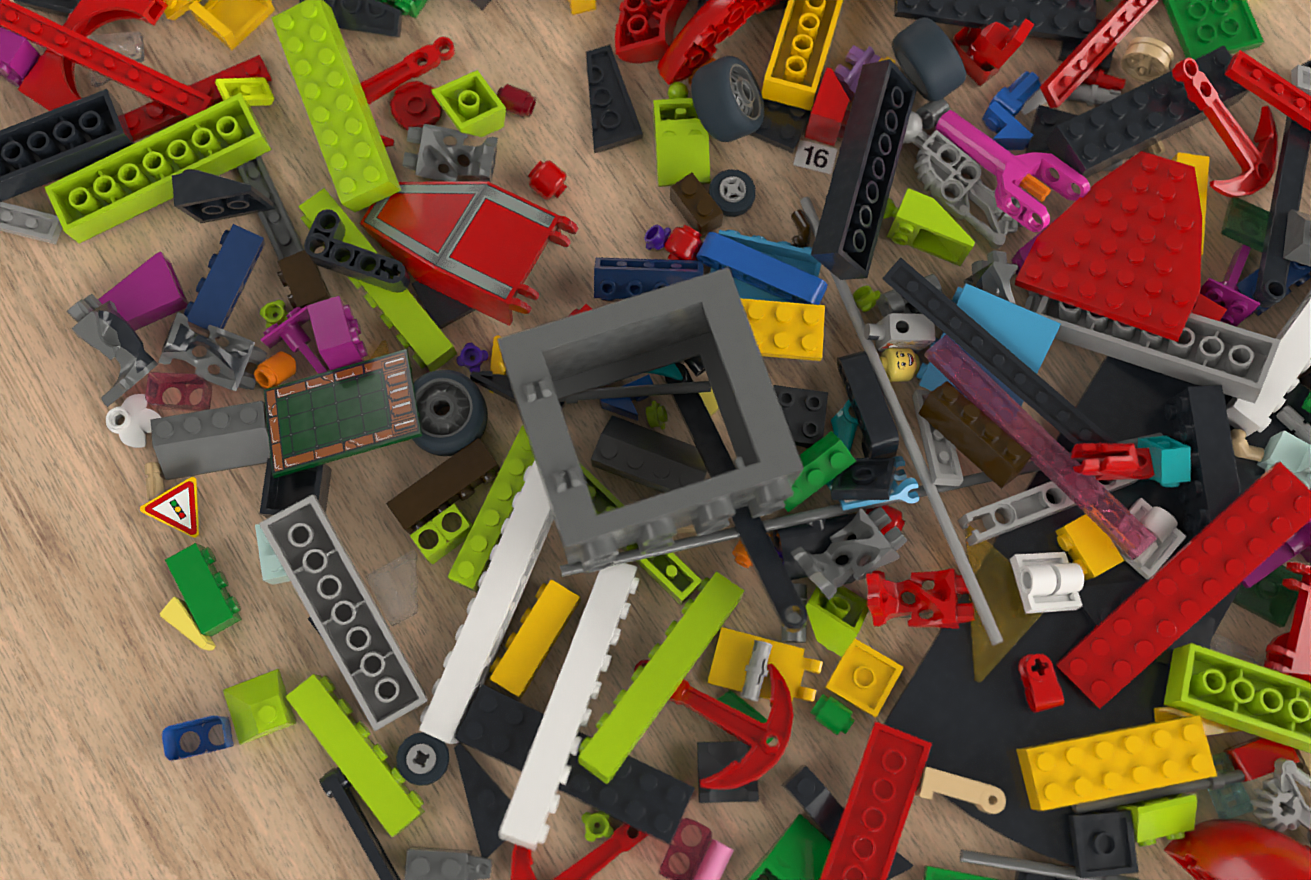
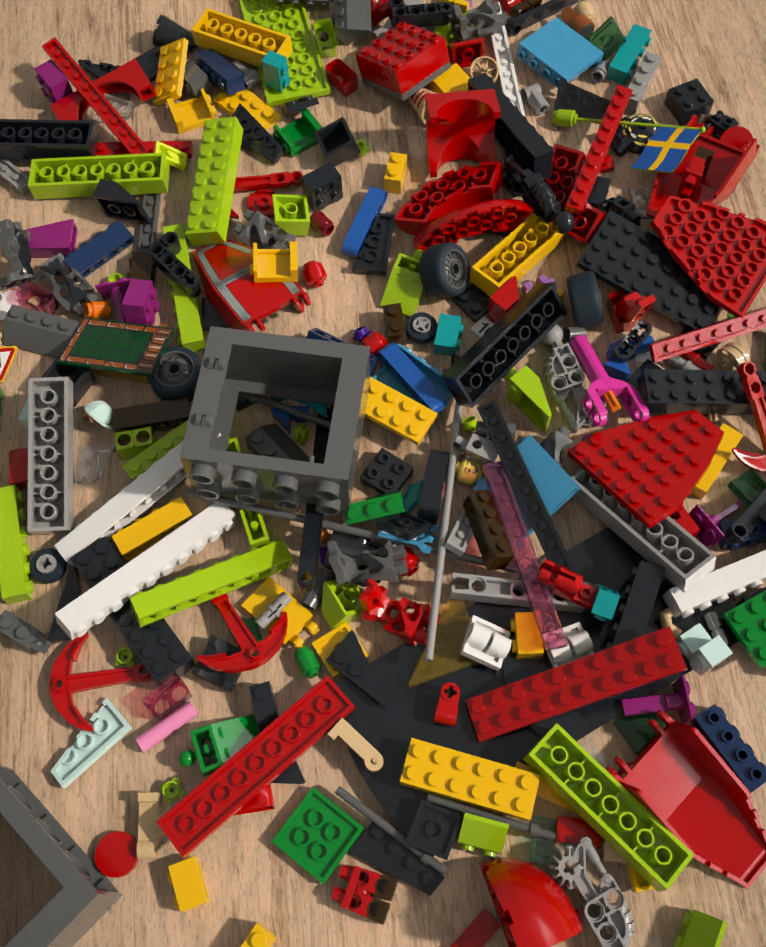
camera: 30 degrees right, 10 degrees down
(305, 645) = (18, 468): none -> red piece
(369, 516) = (99, 412): none -> light aqua piece
(491, 46) = (322, 187): none -> black piece
(502, 194) = (274, 264): none -> yellow panel
(573, 73) = (360, 228): none -> blue beam
(773, 187) = (447, 335): none -> teal brick
(894, 689) = (353, 665): none -> black wing
(1008, 99) = (633, 334): none -> black beam

